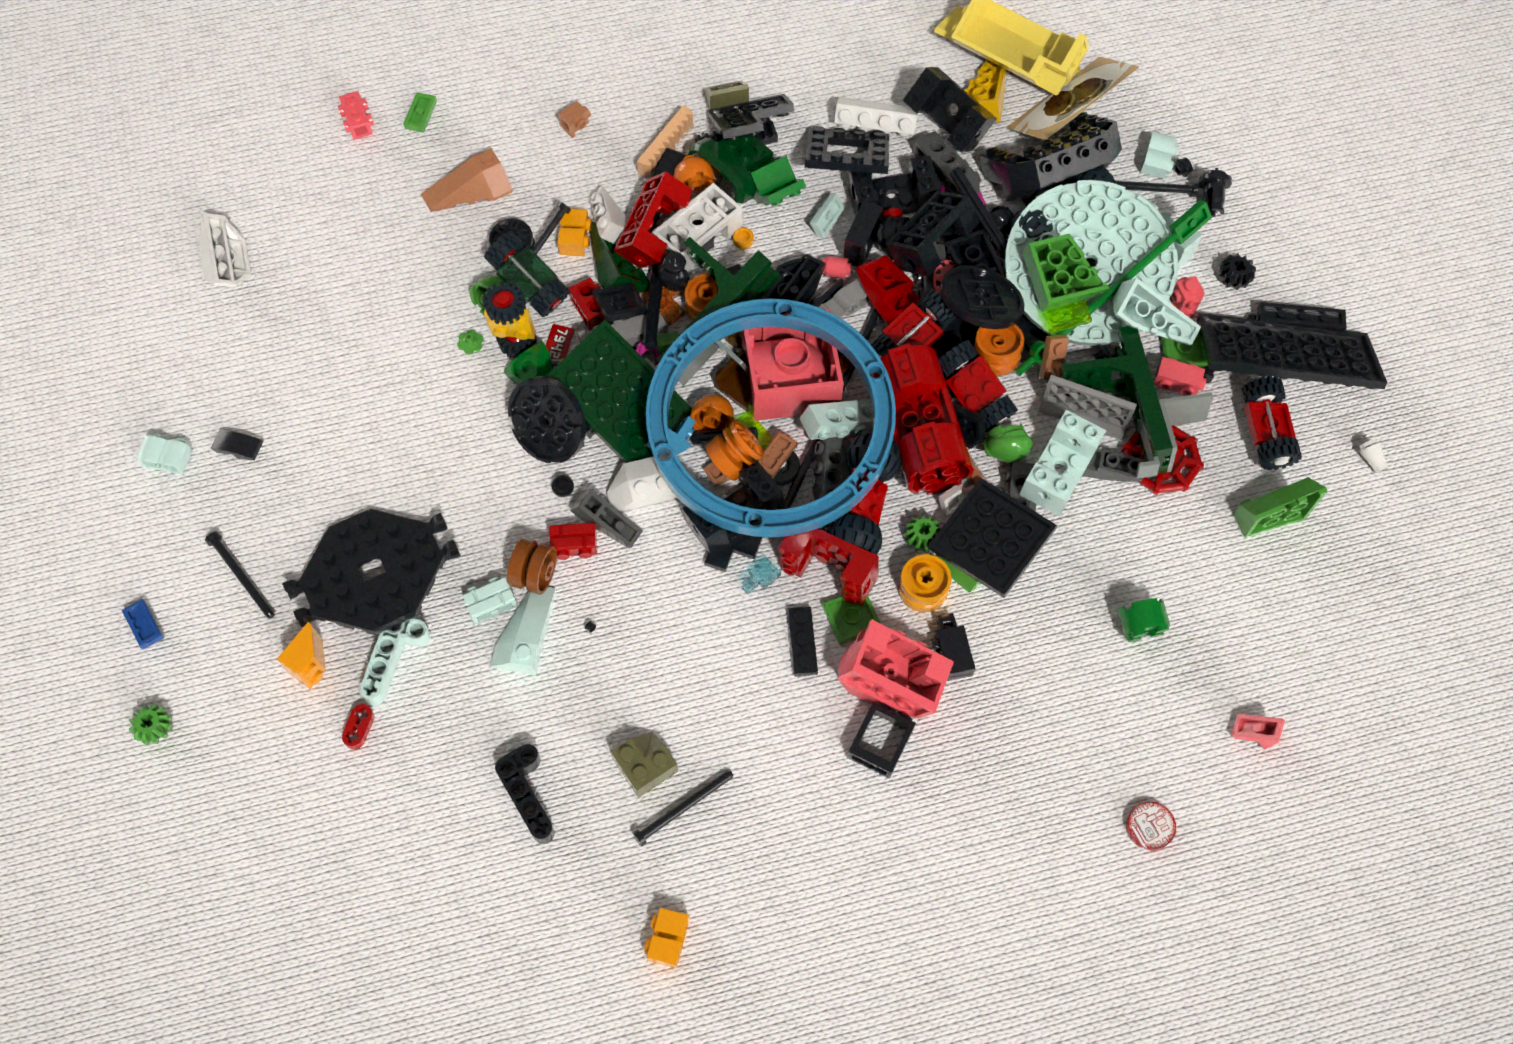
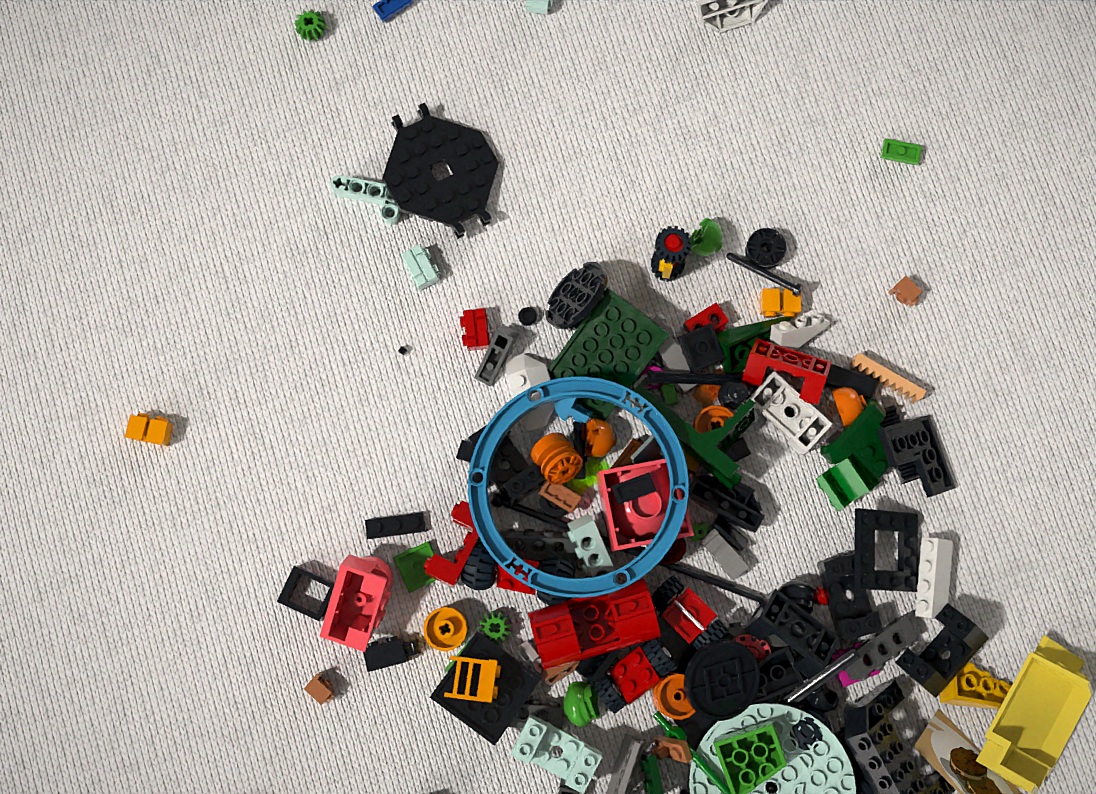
camera: 90 degrees right, 15 degrees up
(214, 540) = (436, 71): black bar -> none
(238, 444) = (552, 48): black slope -> none
(305, 657) = (362, 130): light orange slope -> none
(353, 724) = (313, 183): red beam -> none
(356, 118) = (895, 93): coral brick -> none
(470, 342) = (659, 224): bright green plant -> none
(473, 181) = (827, 207): nougat wedge -> none
(524, 636) = (389, 297): light aqua wedge -> none
(527, 798) = (258, 316): black beam -> none
(528, 272) = (725, 263): plate -> none
(531, 363) = (636, 280): green hat -> none
(532, 566) = (445, 297): dark orange wheel -> none
(559, 341) = (667, 300): red sticker -> none
(641, 836) = (228, 403): black bar -> none
(644, 762) = (286, 402): olive slope -> none
(726, 94) = (949, 431): olive slope -> none
(743, 238) = (788, 456): light orange tile -> none
(761, 574) = (453, 489): clear light blue plate -> none
(775, 362) = (633, 488): none -> black tile
(826, 215) = (823, 536): light aqua hinge -> none
(837, 267) = (760, 544): coral brick -> none
(862, 233) = (794, 567): black window -> none
(887, 287) = (735, 593): red slope -> none
(984, 527) = (486, 688): none -> light orange plate
(995, 728) = (320, 689): none -> nougat brick
(1067, 317) = (709, 763): clear neon green plate -> none

